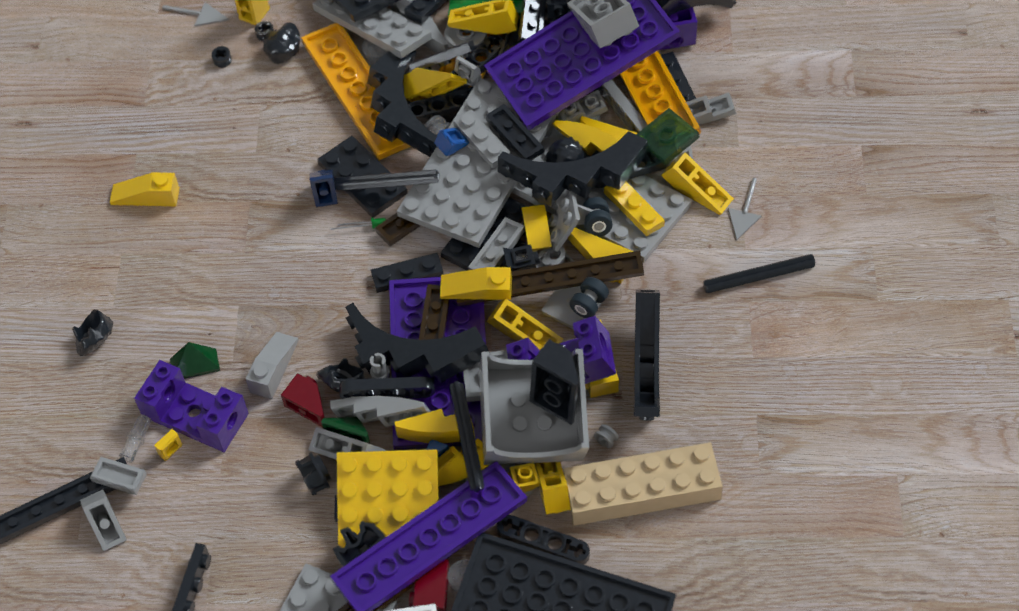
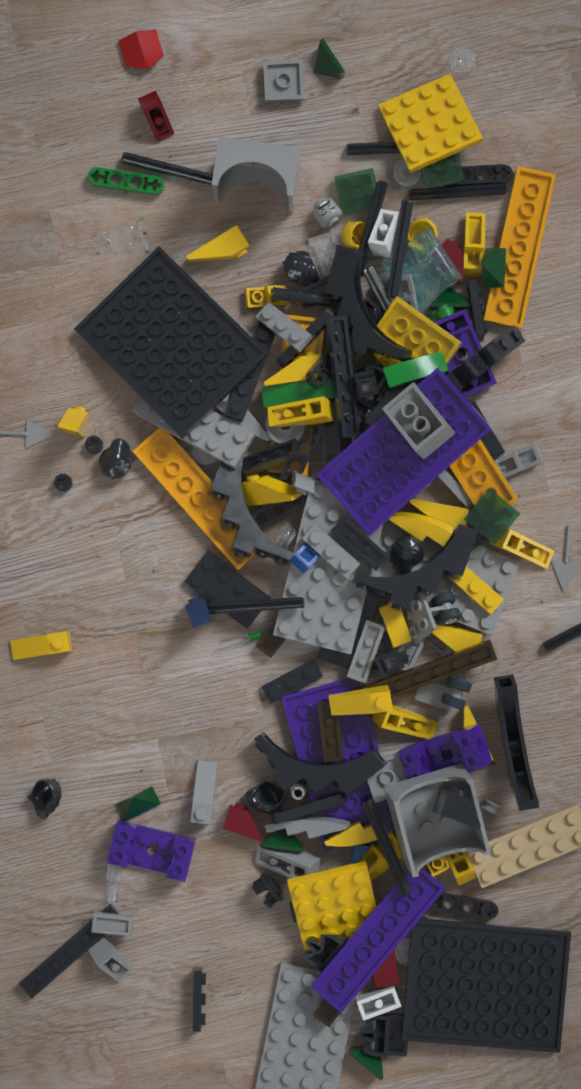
camera: 20 degrees left, 30 degrees up
(168, 445) = (142, 885): yellow tile -> none

